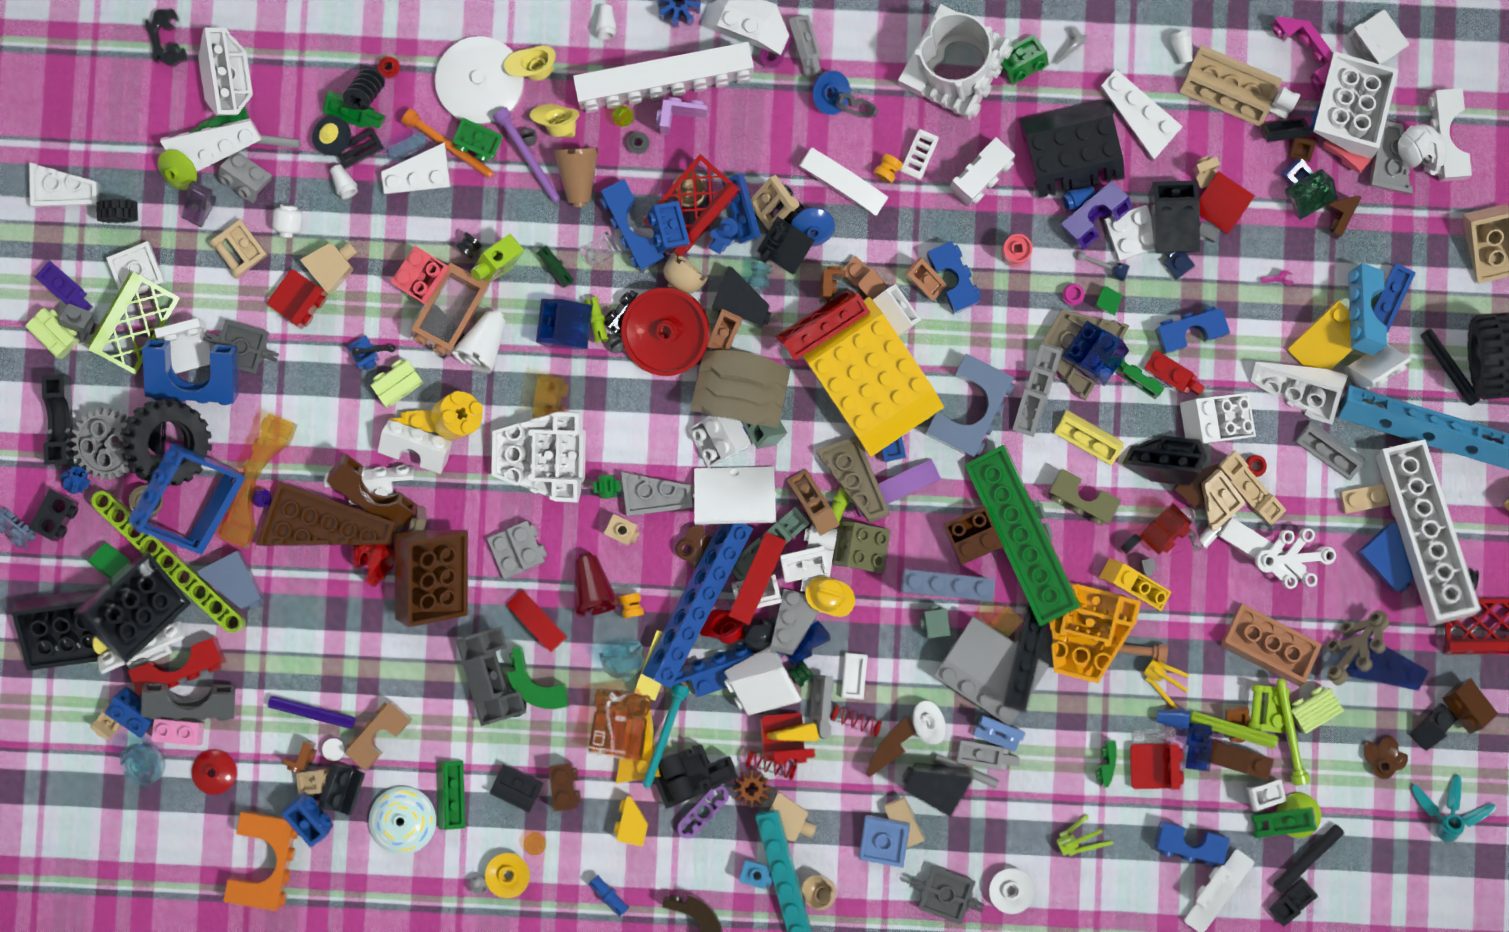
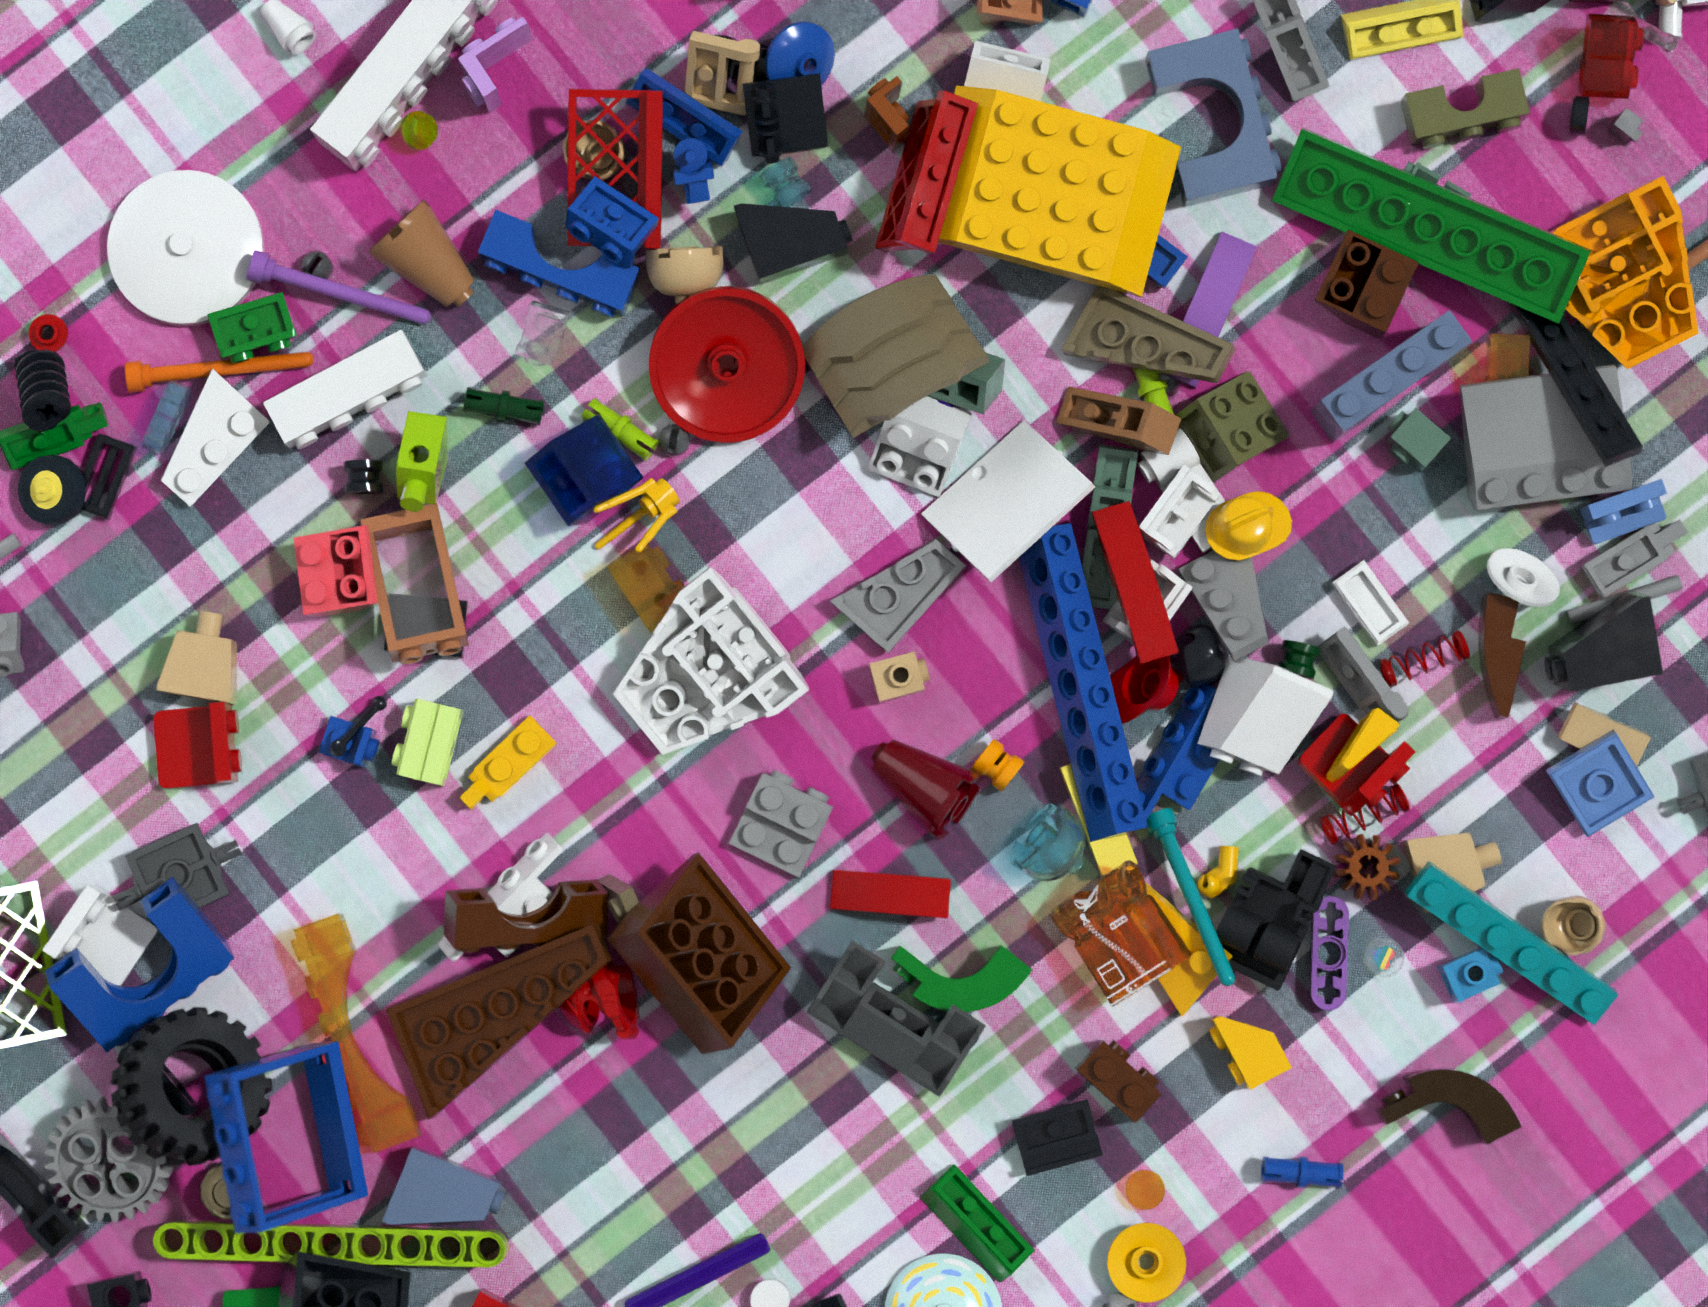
camera: 40 degrees left, 0 degrees up
(75, 480) = (110, 1244): blue gear -> none
(243, 243) = (61, 735): tan plate -> none
(259, 495) = (382, 1051): dark purple hinge -> none
(287, 220) = (91, 653): white head -> none
(344, 184) = (124, 539): white cone -> none
(363, 749) = (809, 1264): medium nougat arch -> none
(431, 448) = (551, 787): white arch -> none
(457, 415) = (548, 714): yellow brick -> none
(482, 342) = (495, 590): white cone -> none
(493, 200) = (346, 389): none -> white brick
(532, 62) = (237, 162): light yellow piece -> none
(557, 119) = (335, 209): light yellow piece -> none
(585, 363) = (657, 499): none -> yellow plant
(606, 486) = (828, 637): green gear -> none
(615, 316) = (642, 403): black hinge -> none
(638, 149) = (470, 160): dark grey plate -> none
(686, 738) = (1223, 875): none -> yellow arm
(697, 541) = (1012, 607): reddish brown plate -> none
(725, 331) = (804, 295): nougat slope -> none
(725, 834) = (1384, 957): none -> clear tile
(814, 637) = (1276, 595): clear blue slope -> none
(864, 279) = (927, 70): nougat slope -> none
(1135, 584) = (1629, 164): yellow slope -> none

